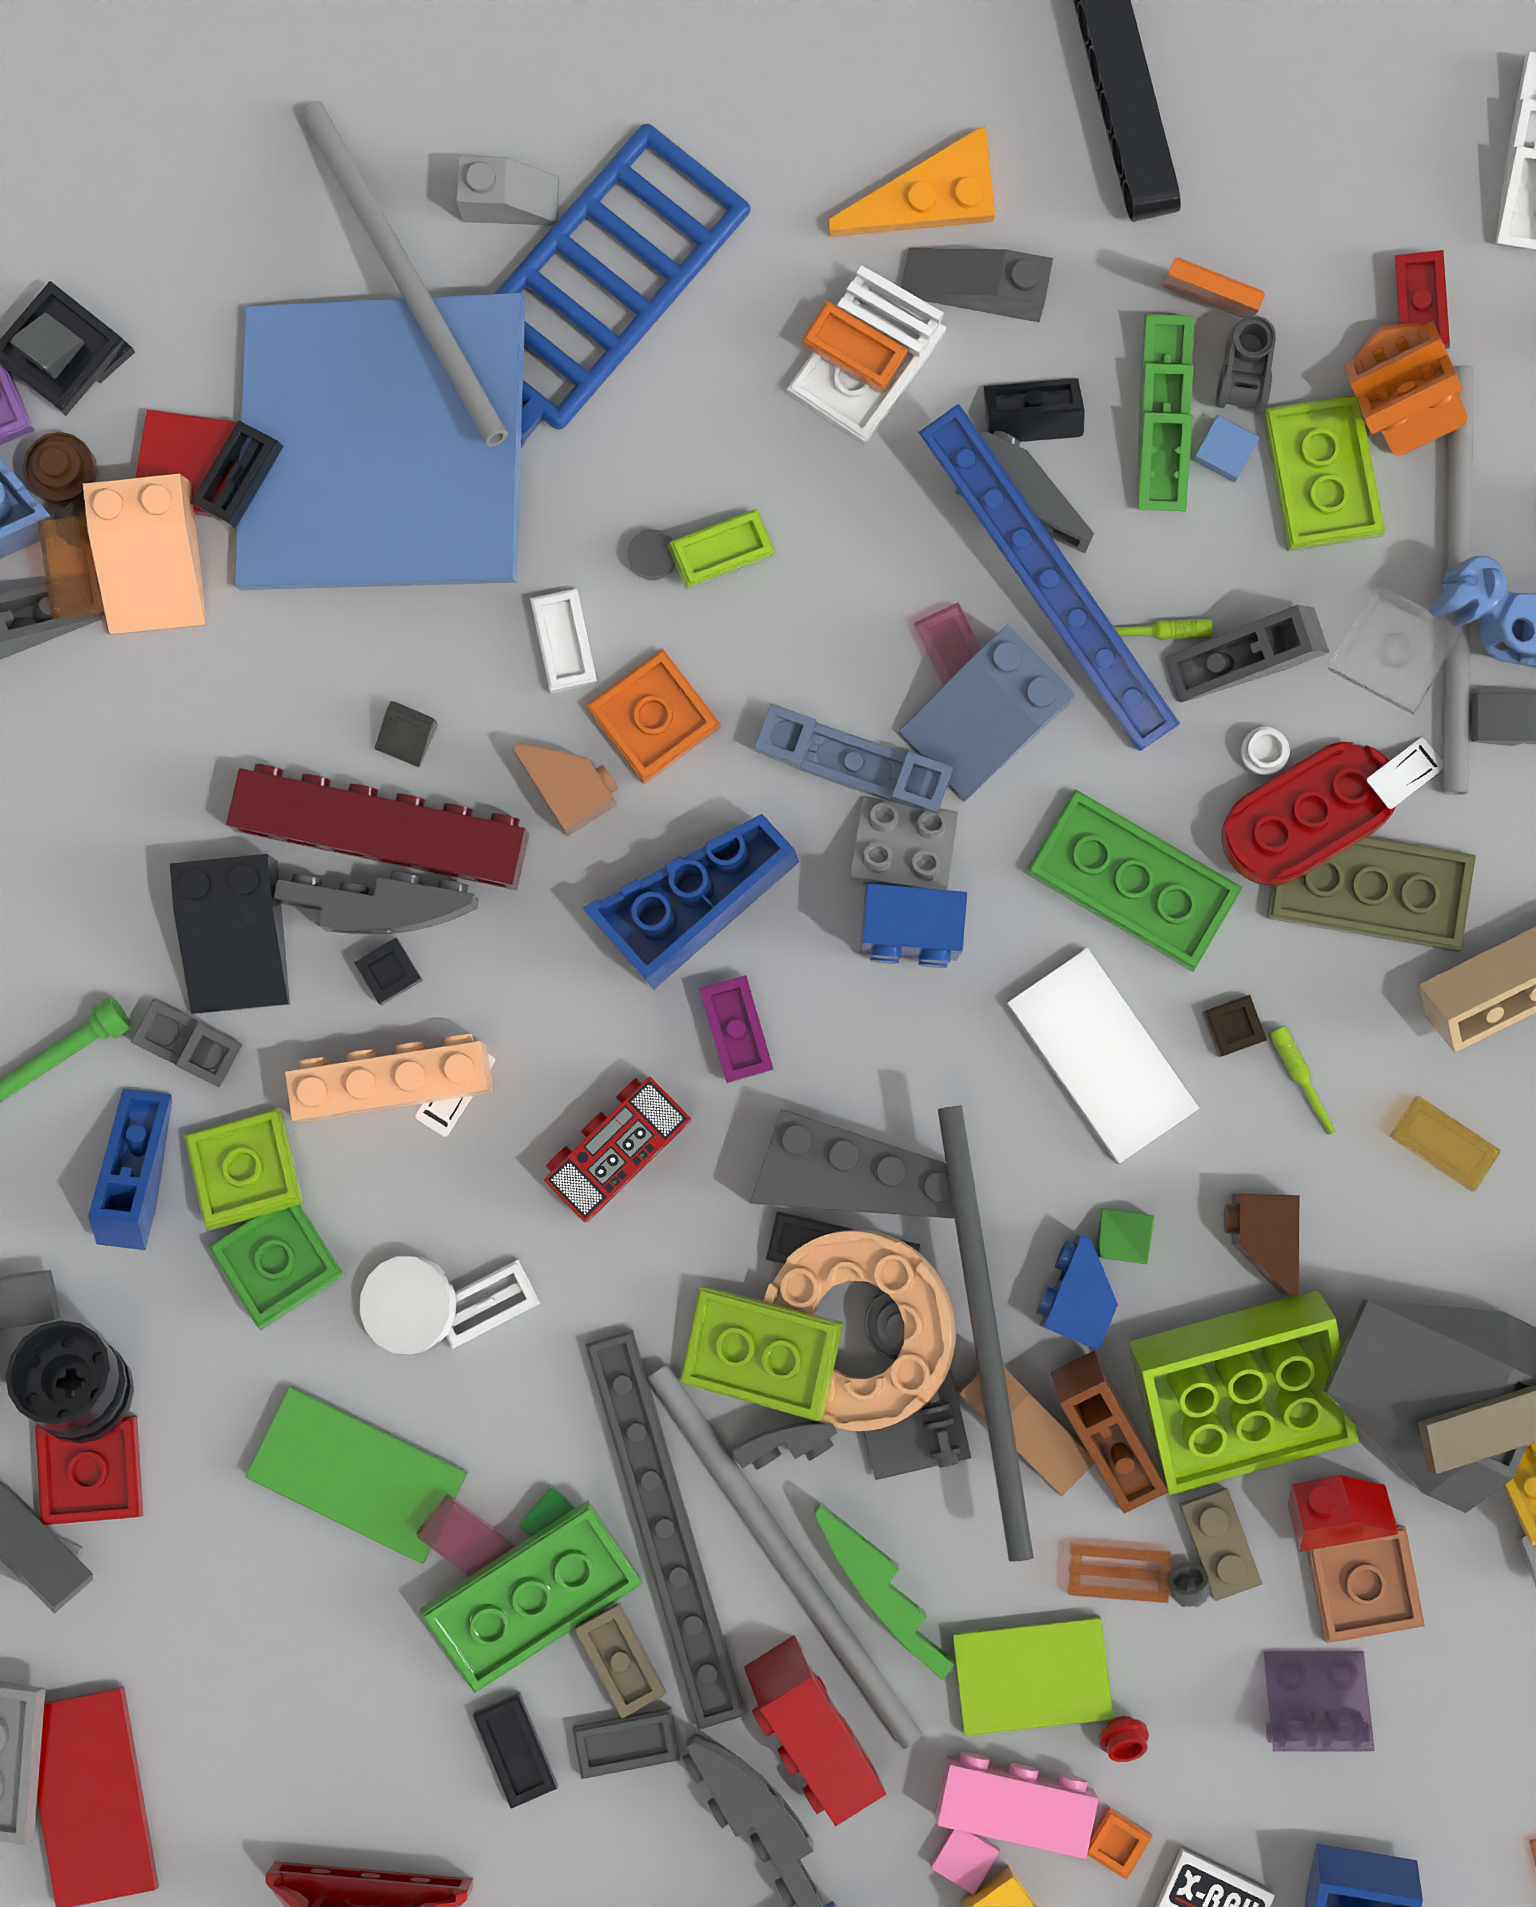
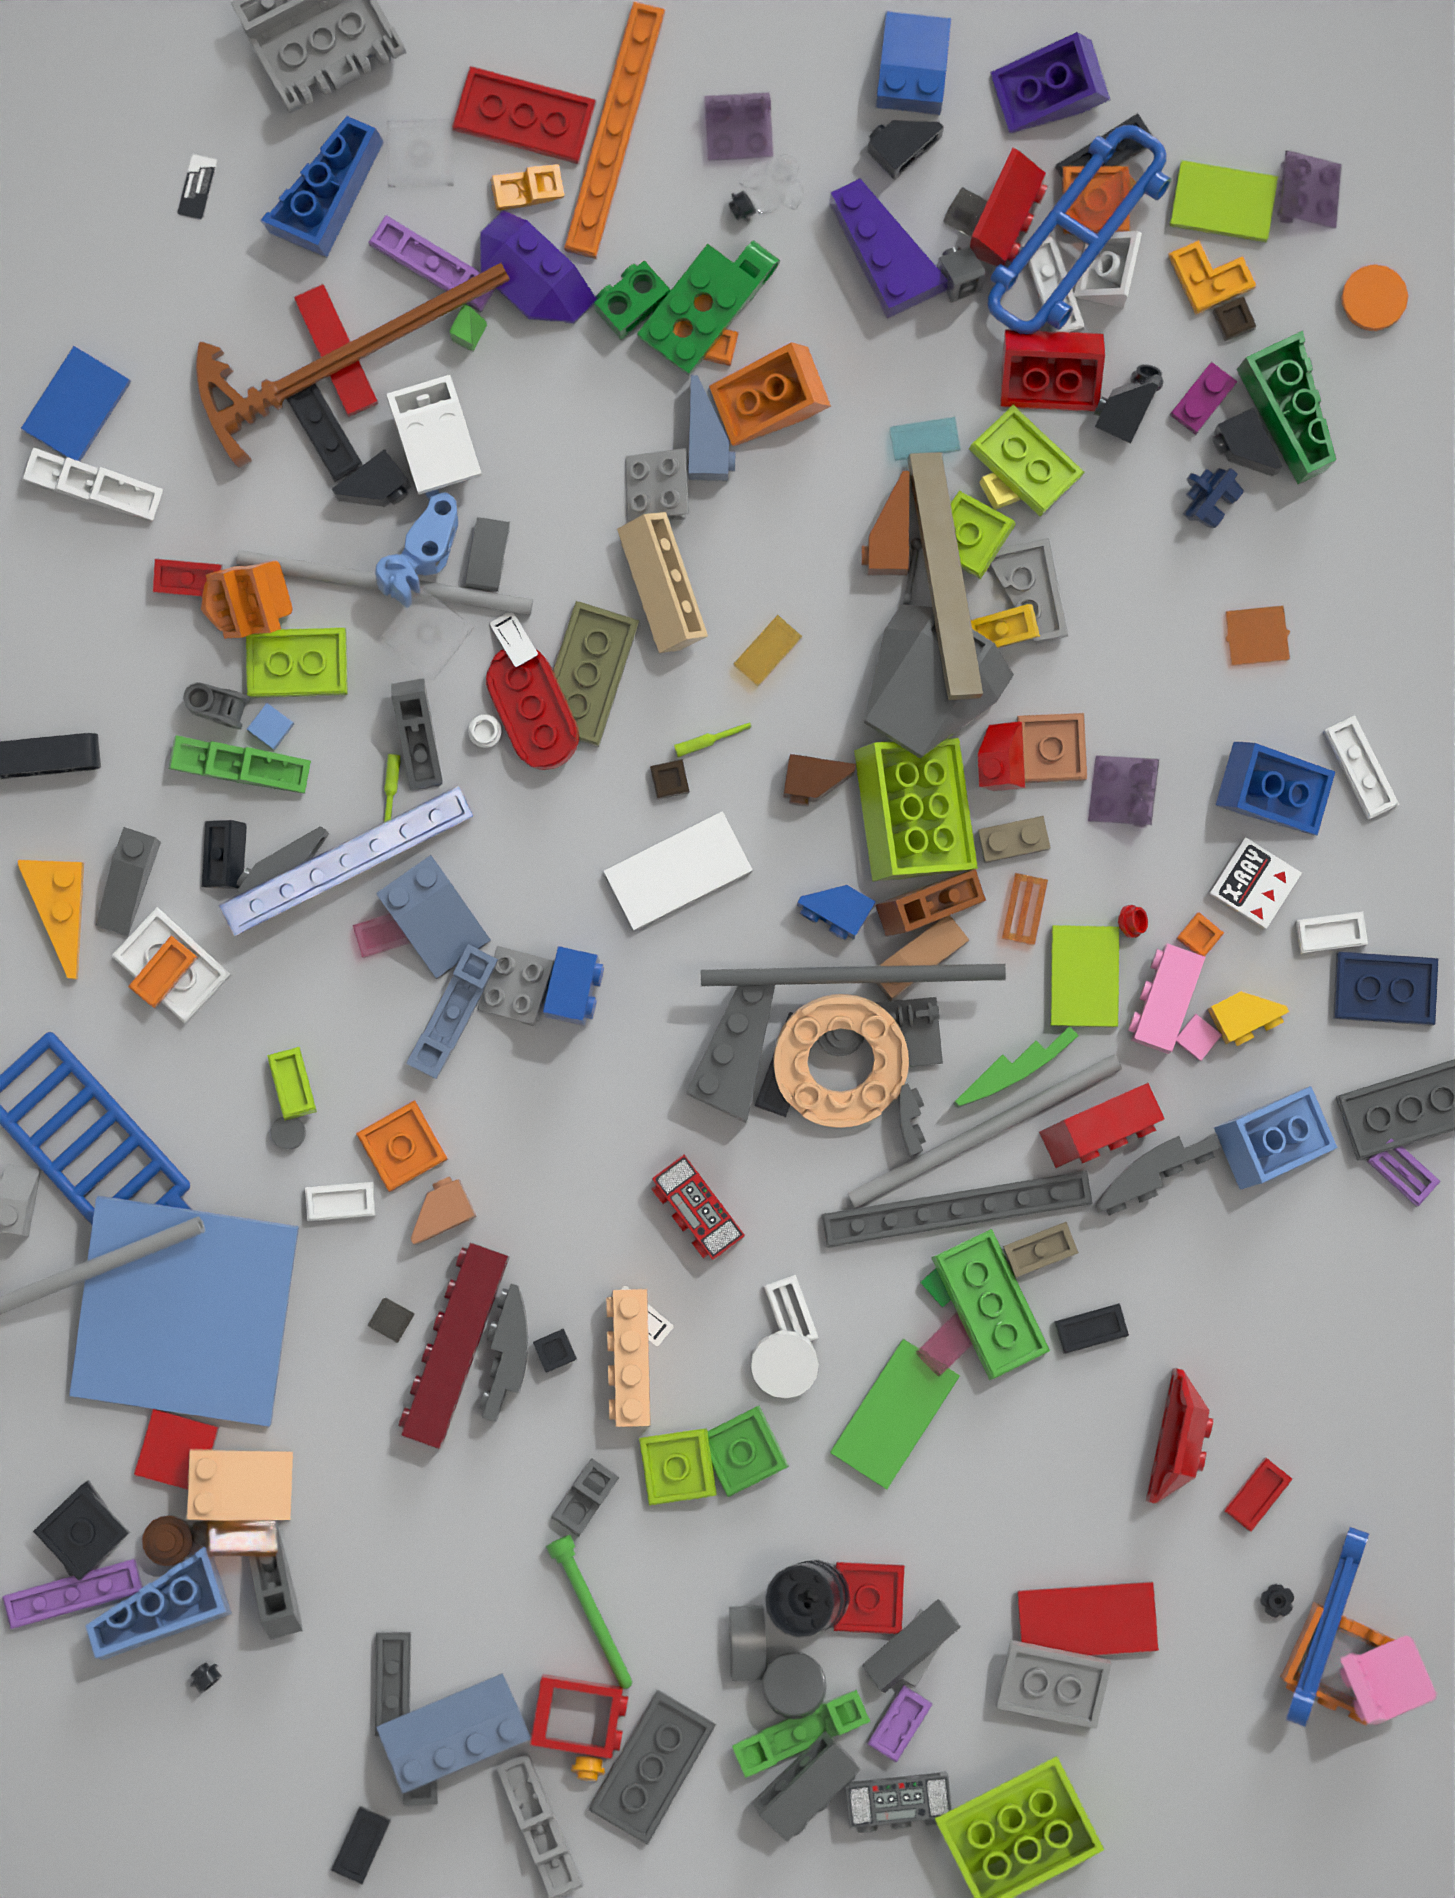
camera: 85 degrees left, 0 degrees up
(47, 344) = (80, 1535): dark grey slope -> none
(131, 1171) = (668, 1543): blue slope -> none
(230, 933) = (514, 1456): black slope -> none
(243, 478) = (199, 1404): black tile -> none
(626, 1743) = (1095, 1253): dark grey tile -> none
(693, 898) = (539, 1143): blue wedge -> none
(736, 1029) = (627, 1116): magenta plate -> none
(761, 1352) = (848, 1127): lime tile -> none
(898, 295) = (132, 934): white tile -> none
(1124, 1236) = (801, 873): bright green slope -> none
(1134, 880) = (561, 833): bright green tile -> none
(1178, 1584) = (1034, 870): dark grey hinge -> none
(1213, 288) = (160, 719): orange tile -> none

